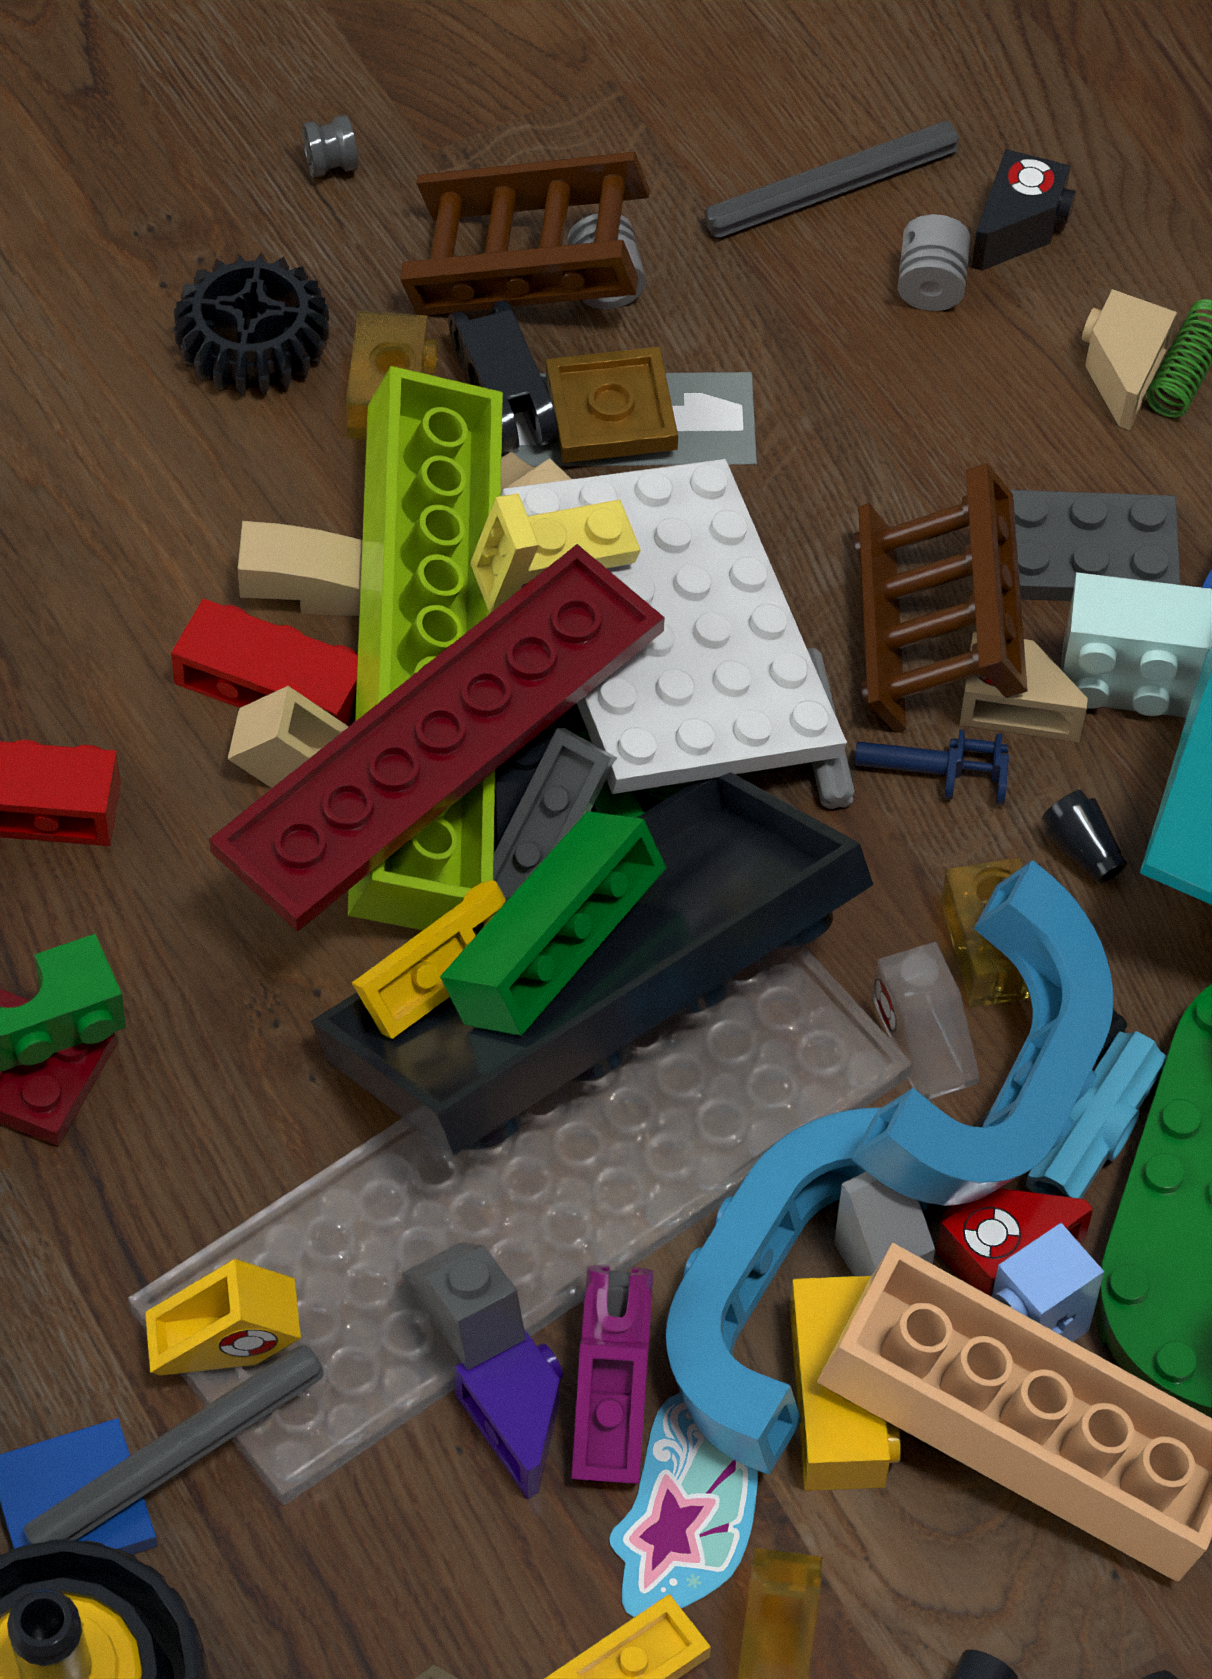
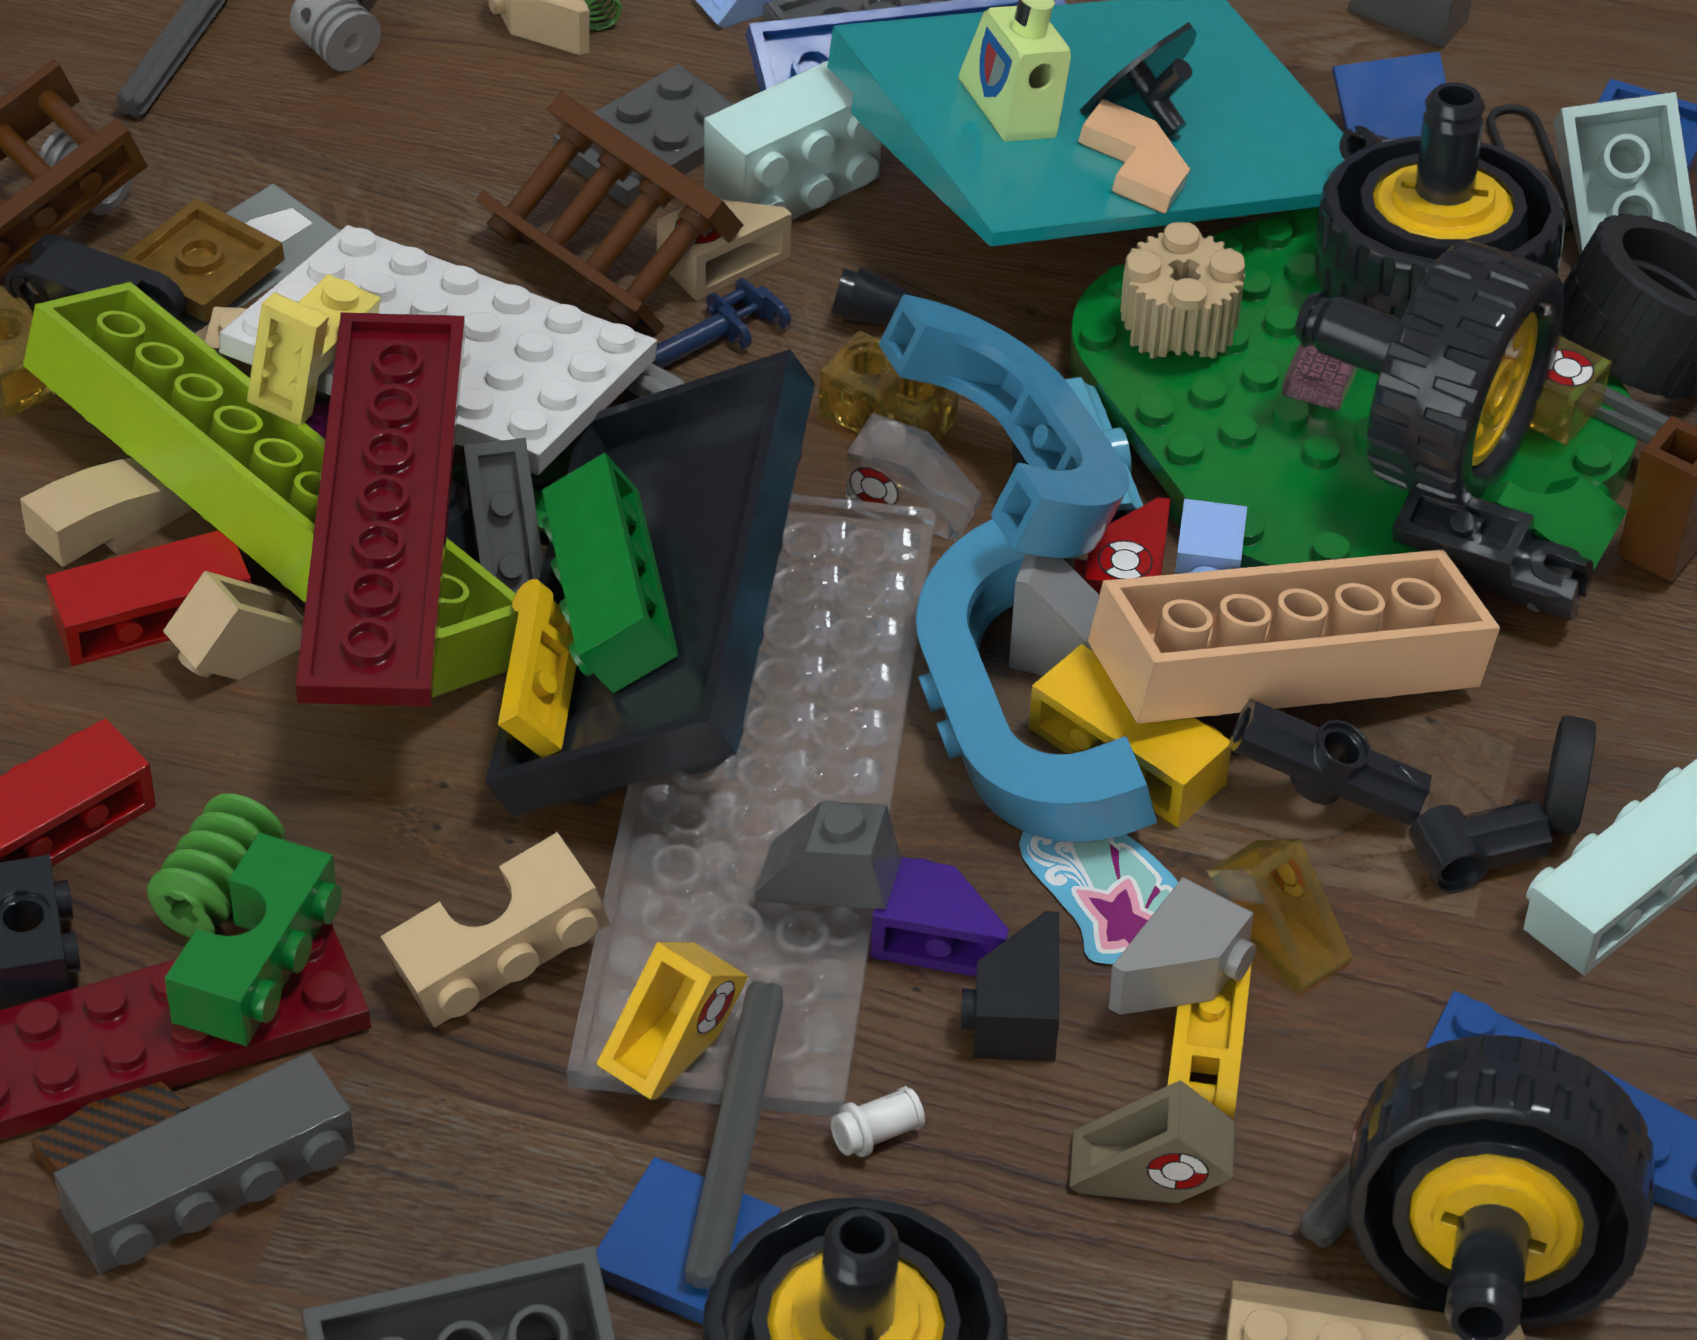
camera: 45 degrees left, 10 degrees down
(108, 917) = (194, 879): none -> bright green piece
(240, 1161) = (459, 965): none -> tan arch
(296, 1530) = (863, 1126): none -> white pin
(508, 1521) = (1017, 996): none -> black slope
(612, 1375) = (982, 836): magenta plate -> none
(638, 1598) = (1183, 952): none -> light grey slope
(974, 1582) = (1330, 762): none -> black piece

